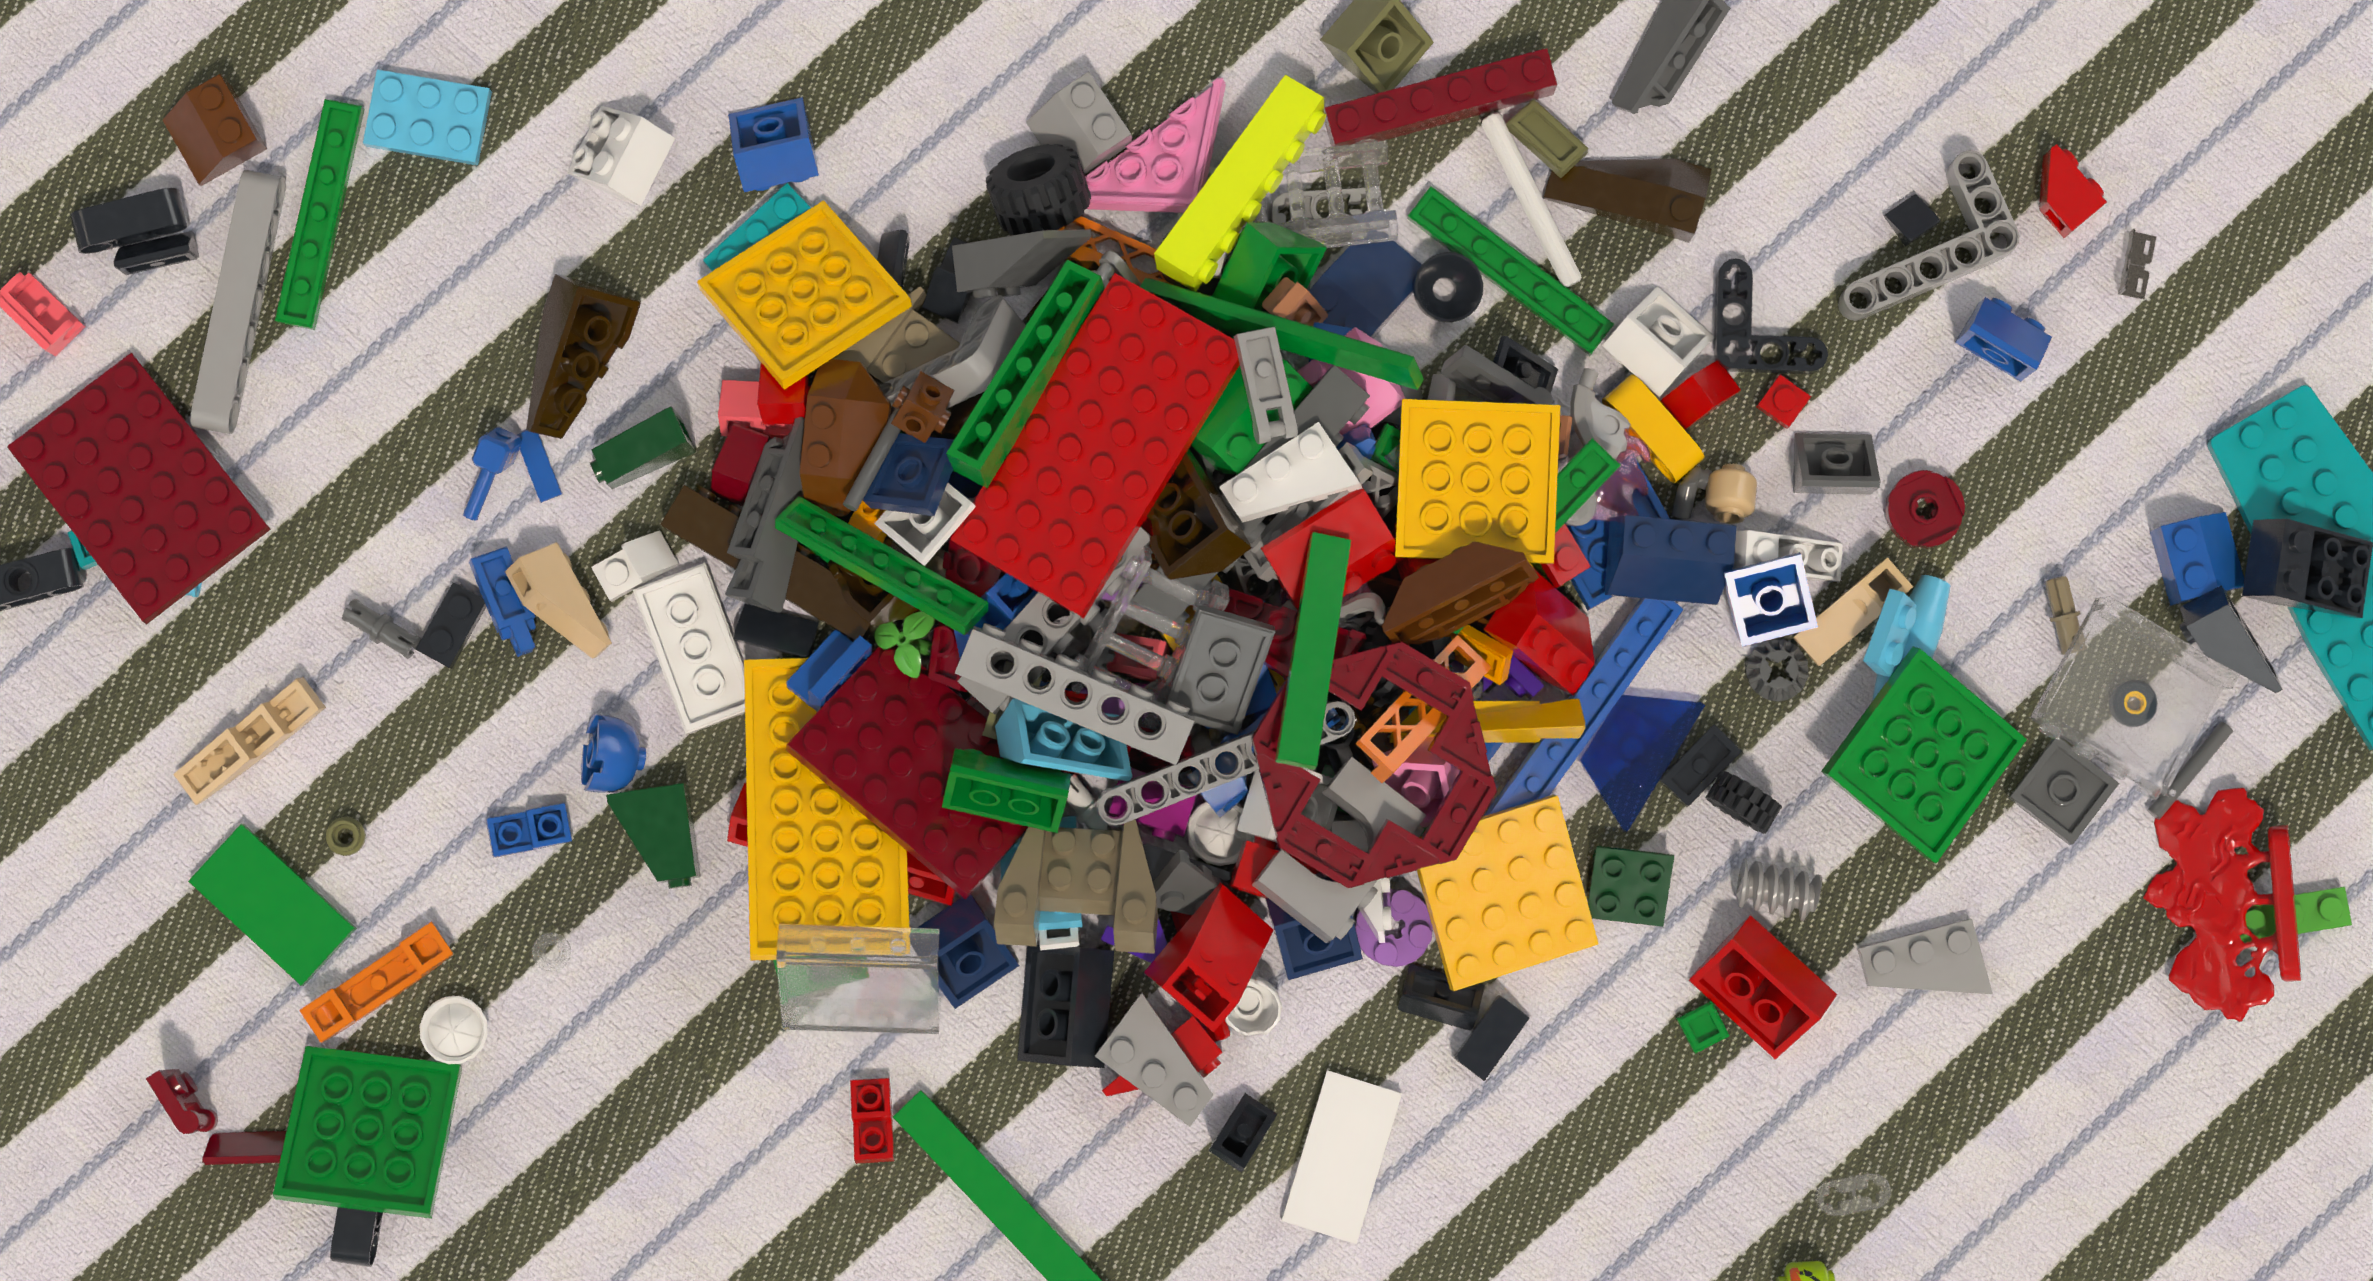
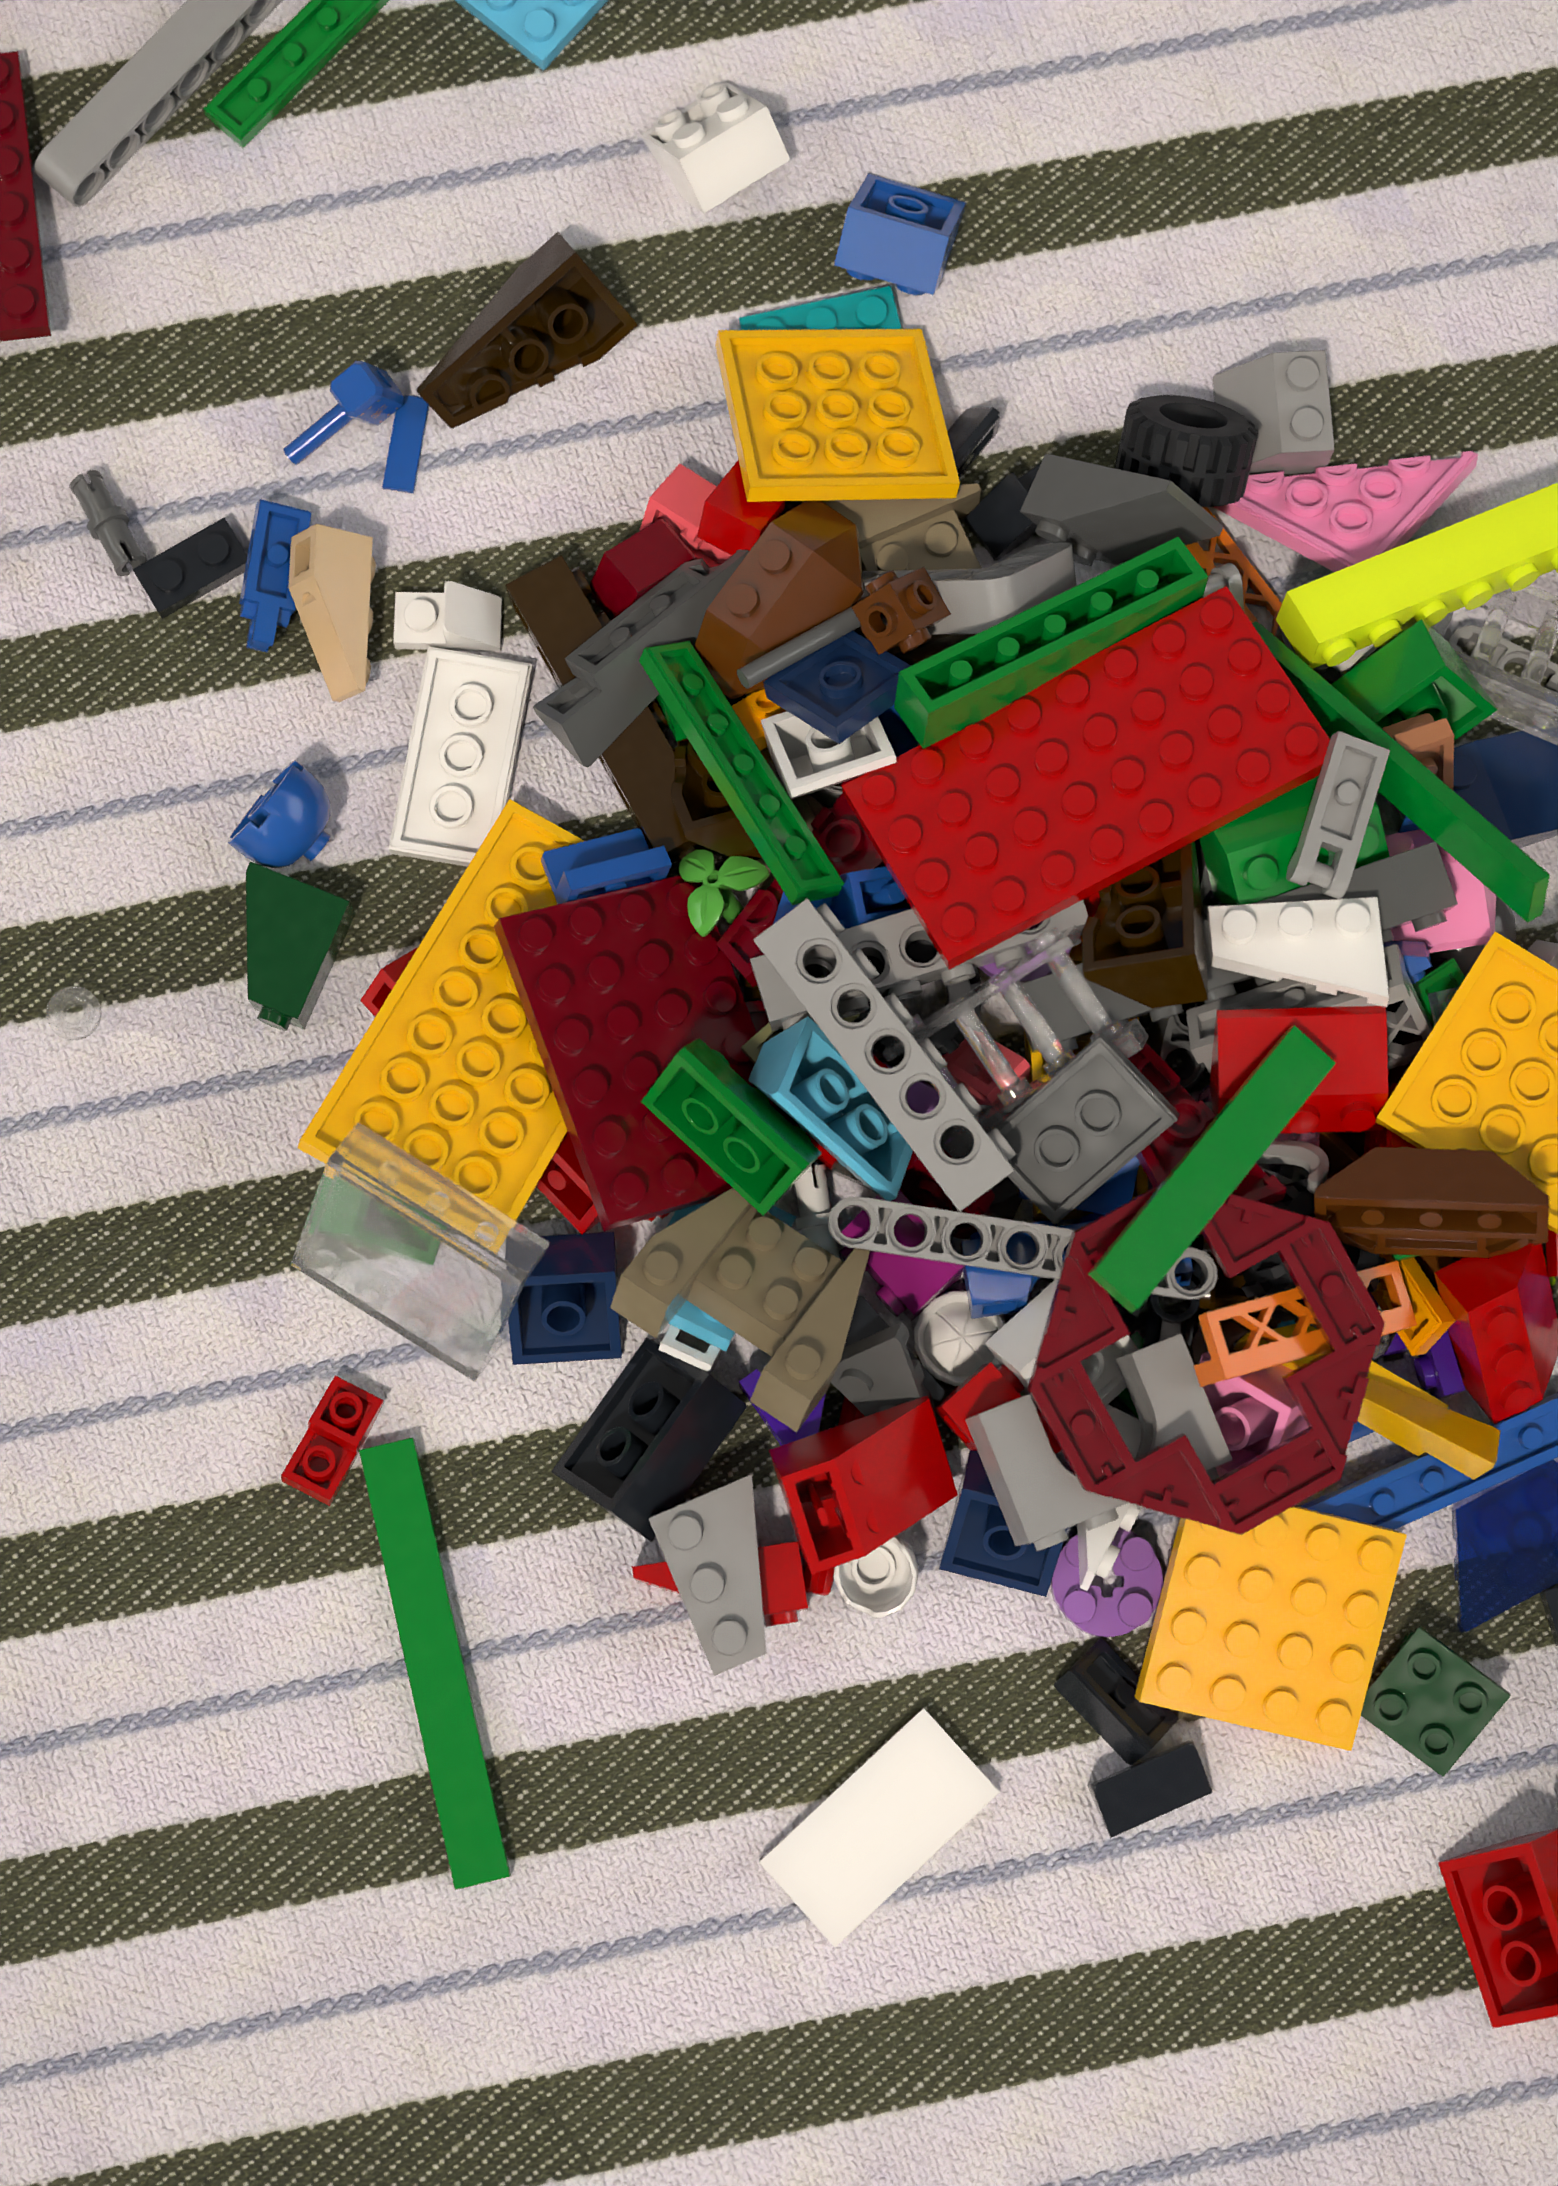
camera: 25 degrees right, 5 degrees down
(528, 830) = (135, 855): blue slope -> none
(642, 449) = (539, 488): dark green slope -> none
(776, 631) = (567, 791): black slope -> none
(1243, 1132) = (775, 1723): black slope -> none
(1702, 1027) = (1423, 1933): green tile -> none

